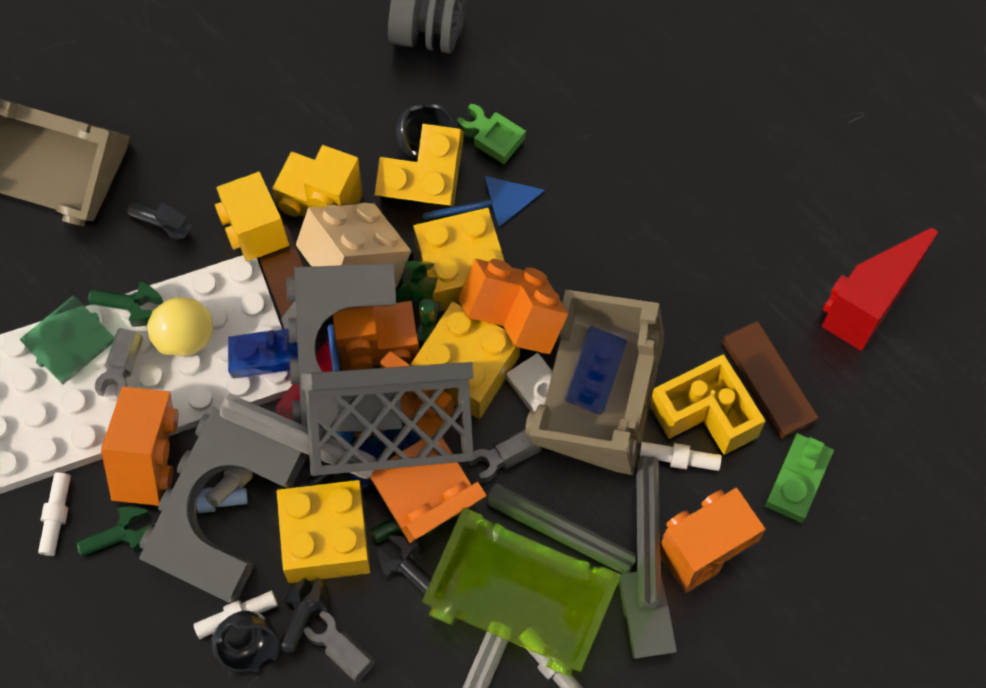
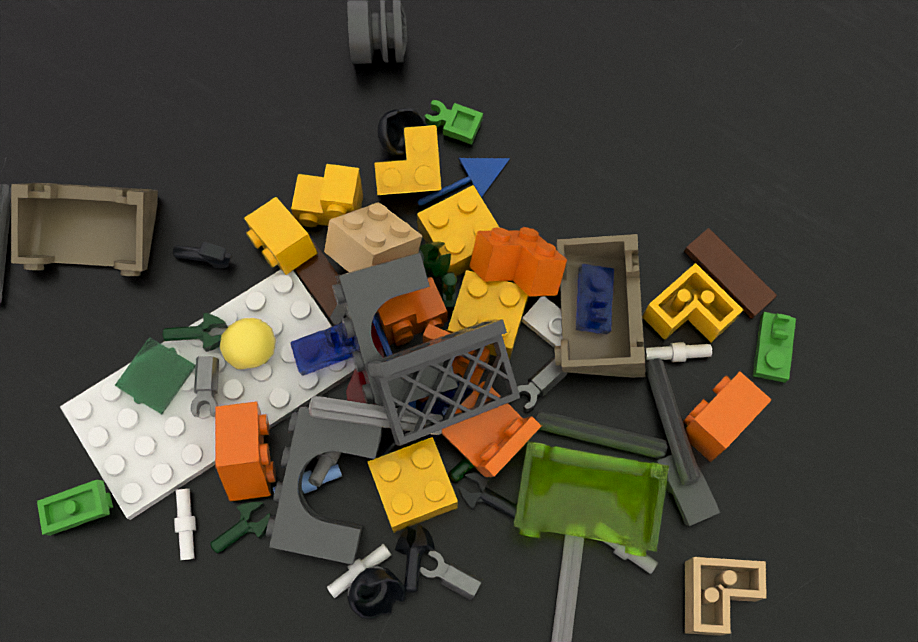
camera: 15 degrees left, 5 degrees up
(866, 296) = (794, 190): red slope -> none

